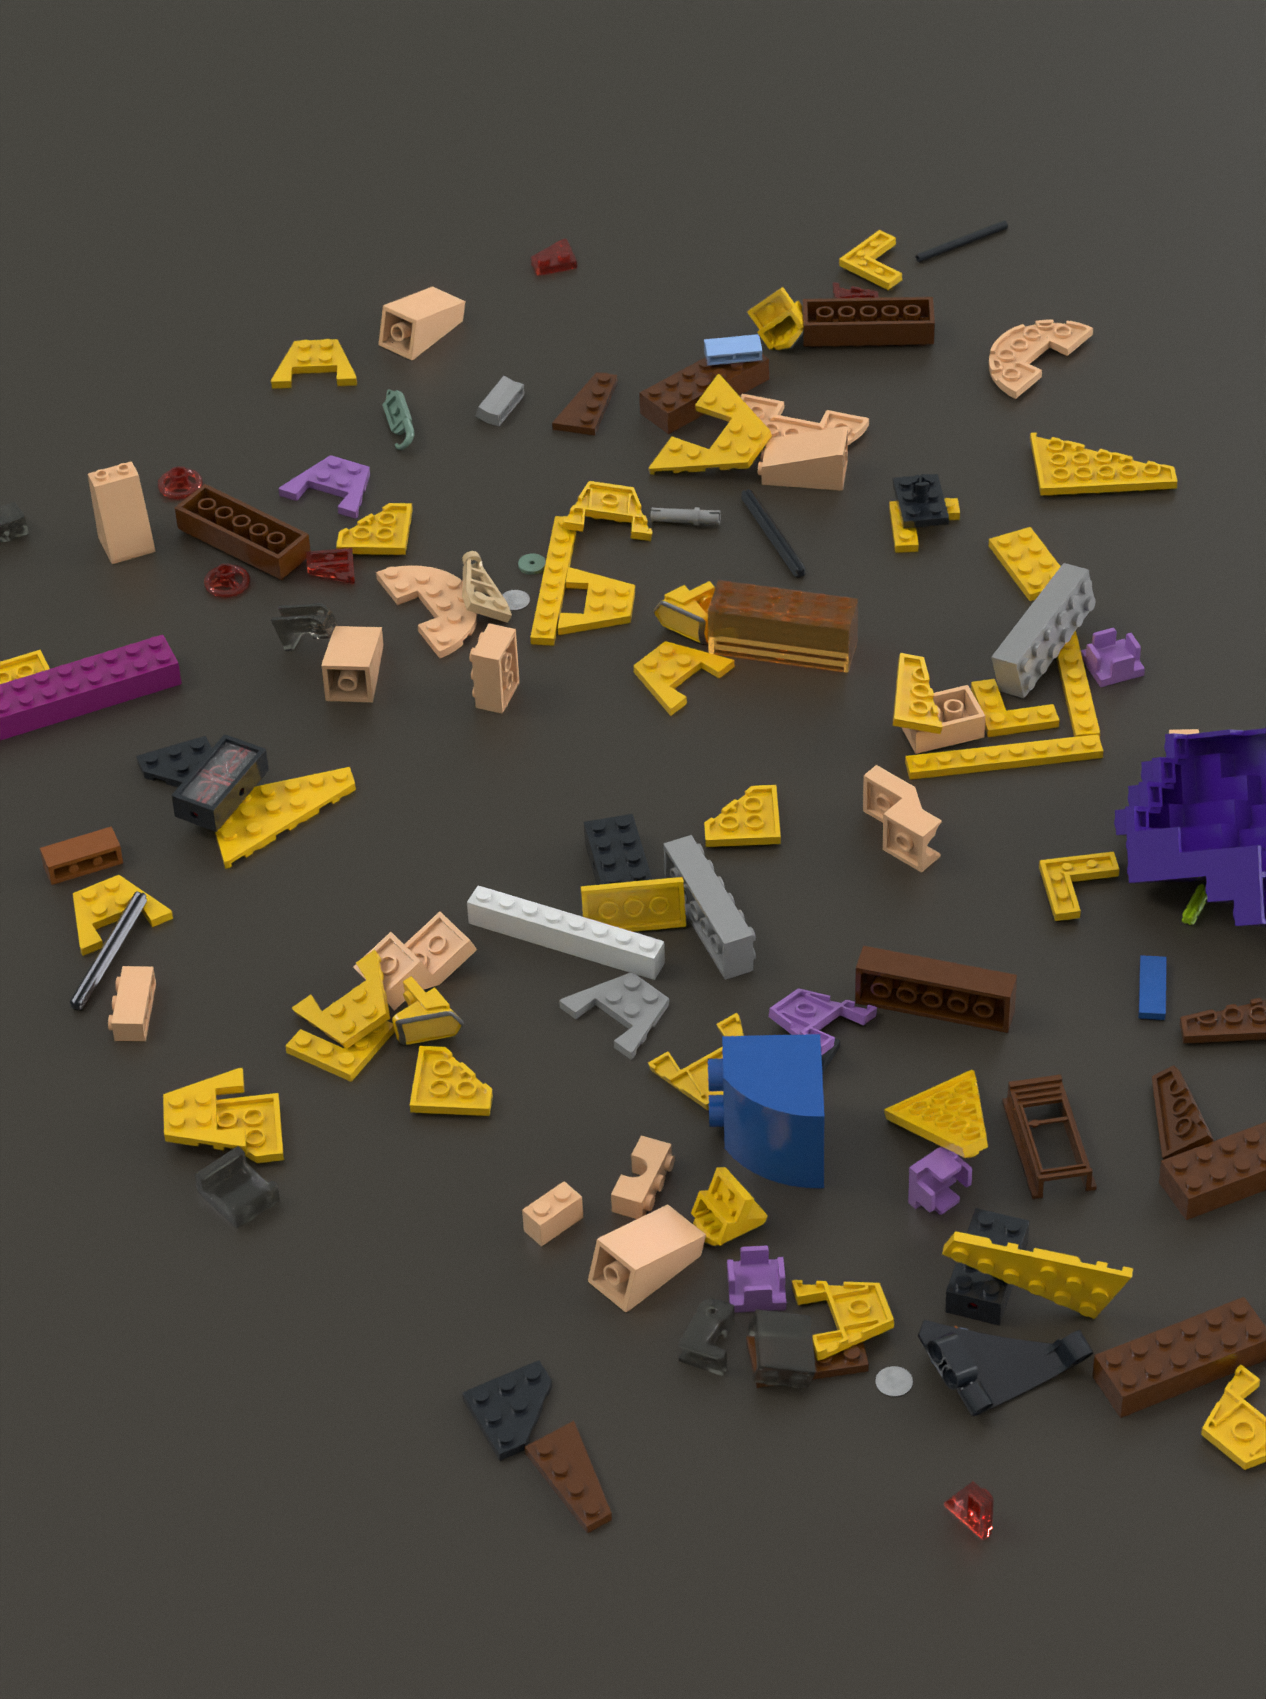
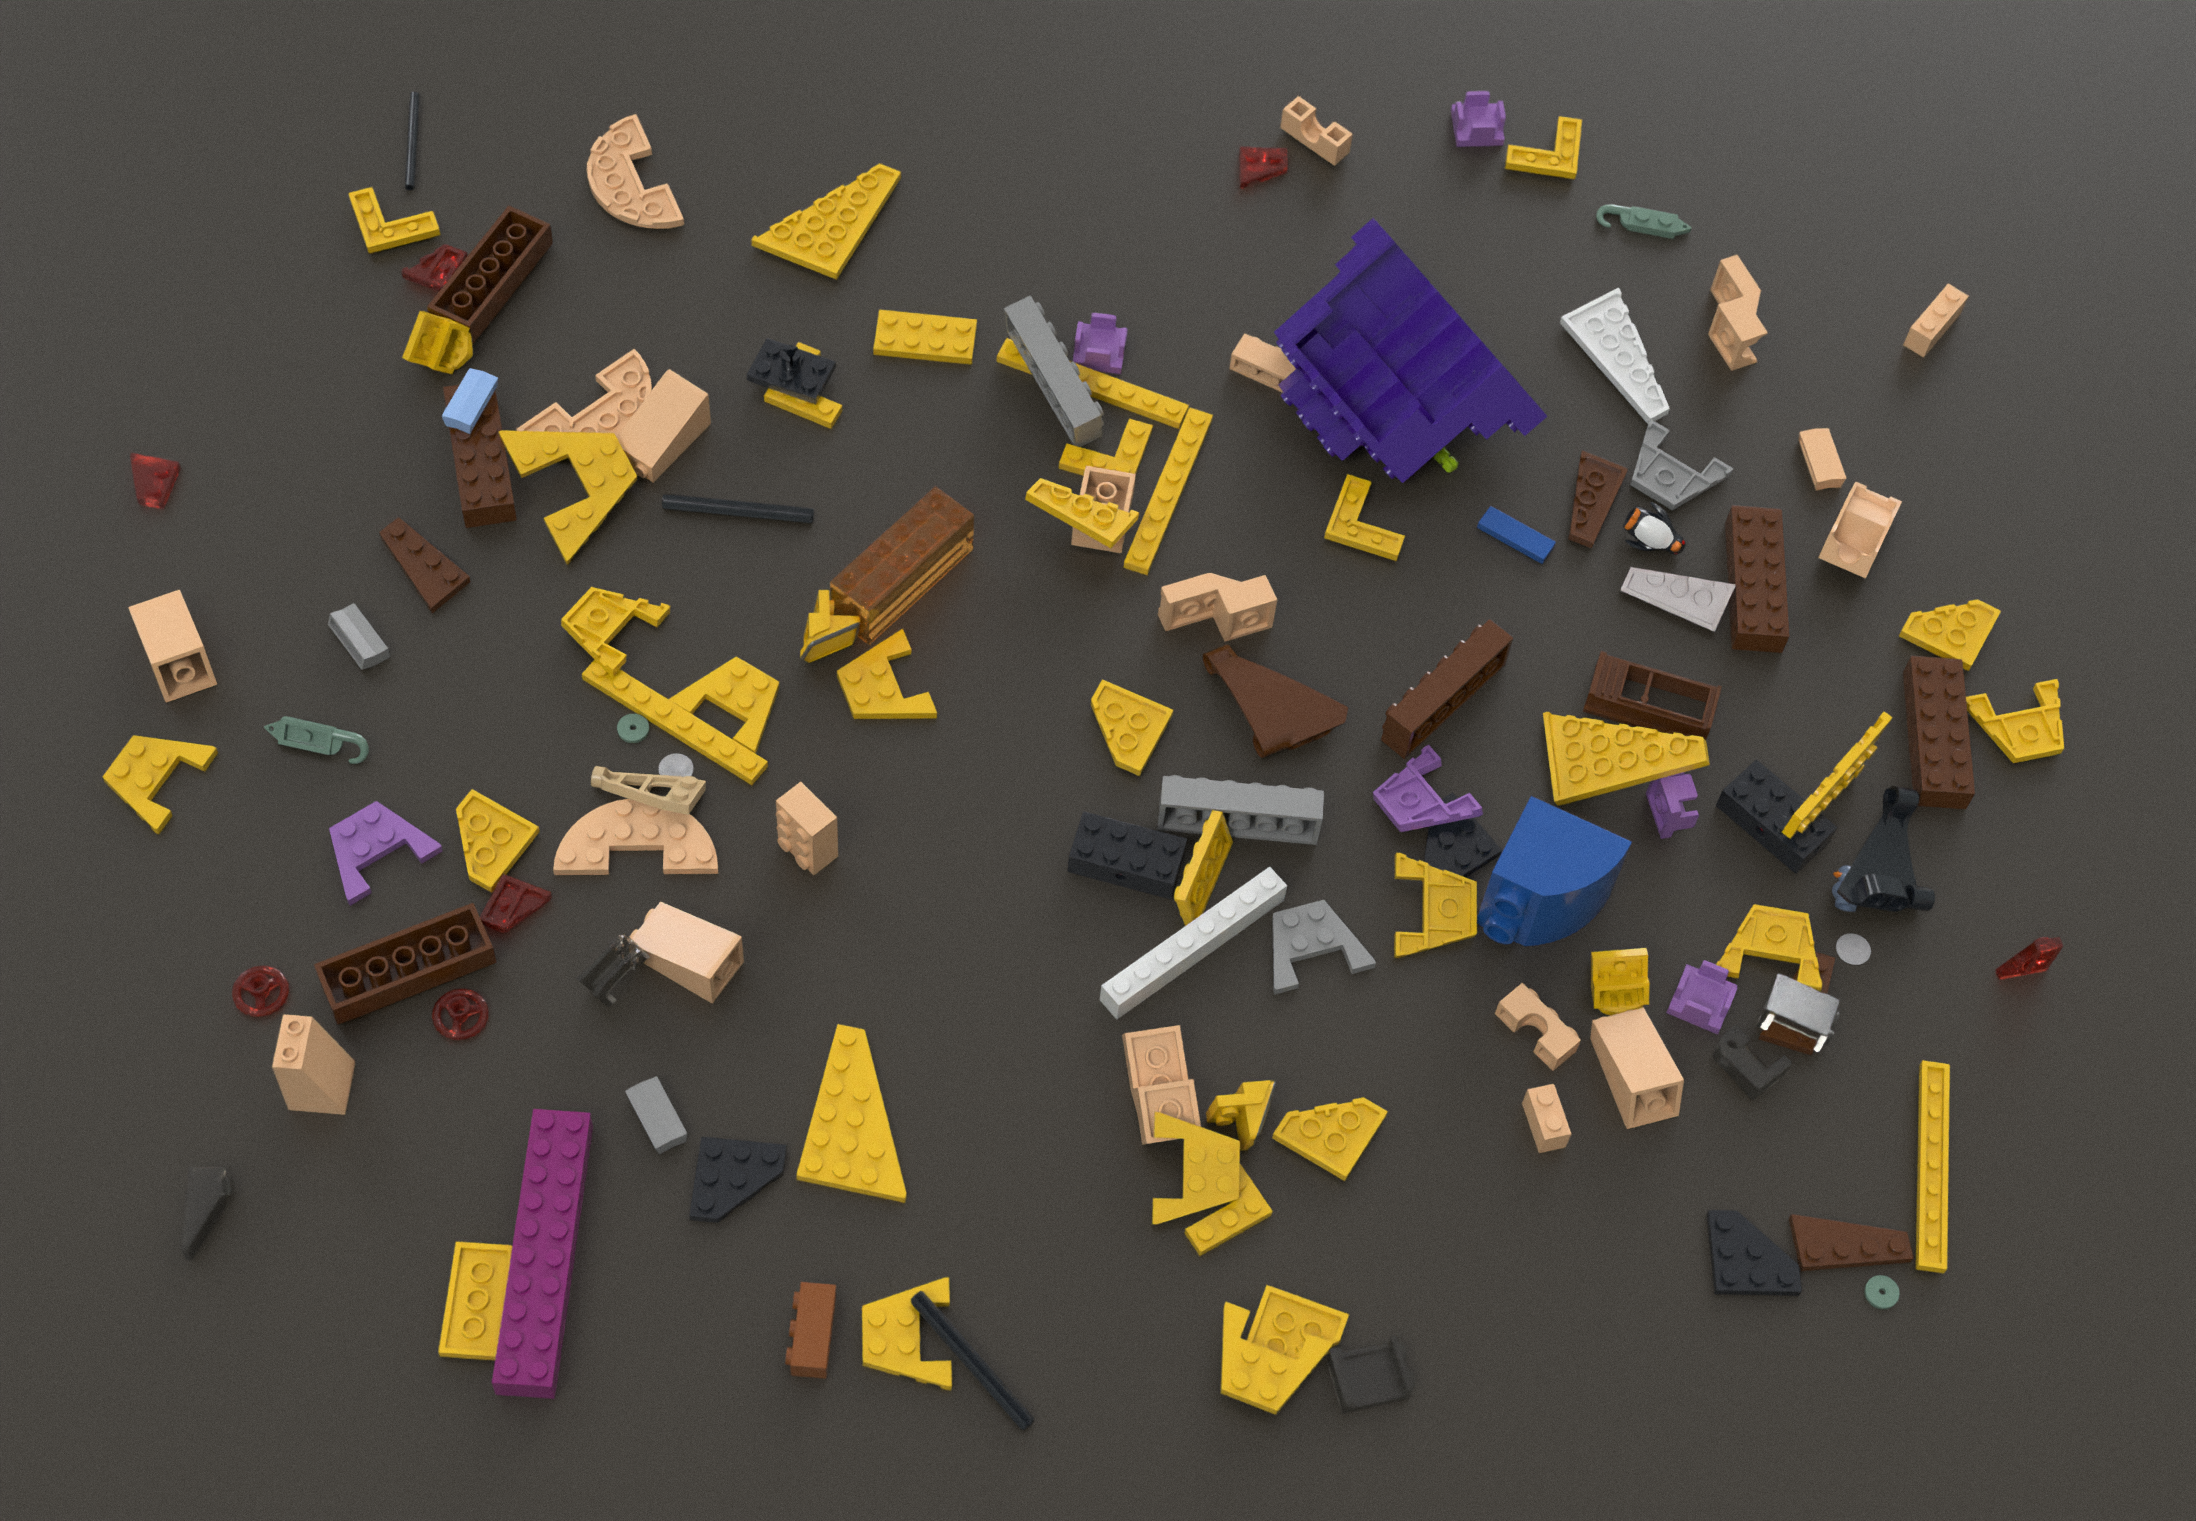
camera: 70 degrees left, 15 degrees up
(133, 1003) = (1064, 1367): light nougat brick -> none
(208, 706) = (657, 1114): none -> light grey piece
(220, 782) = (812, 1150): black brick -> none
(544, 1527) = (1881, 1283): none -> sand green wheel
(693, 516) = (669, 558): light grey pin -> none
(694, 1510) = (1932, 1167): none -> yellow plate
(830, 892) = (1275, 706): none -> reddish brown panel
(1232, 1068) = (1653, 530): none -> animal

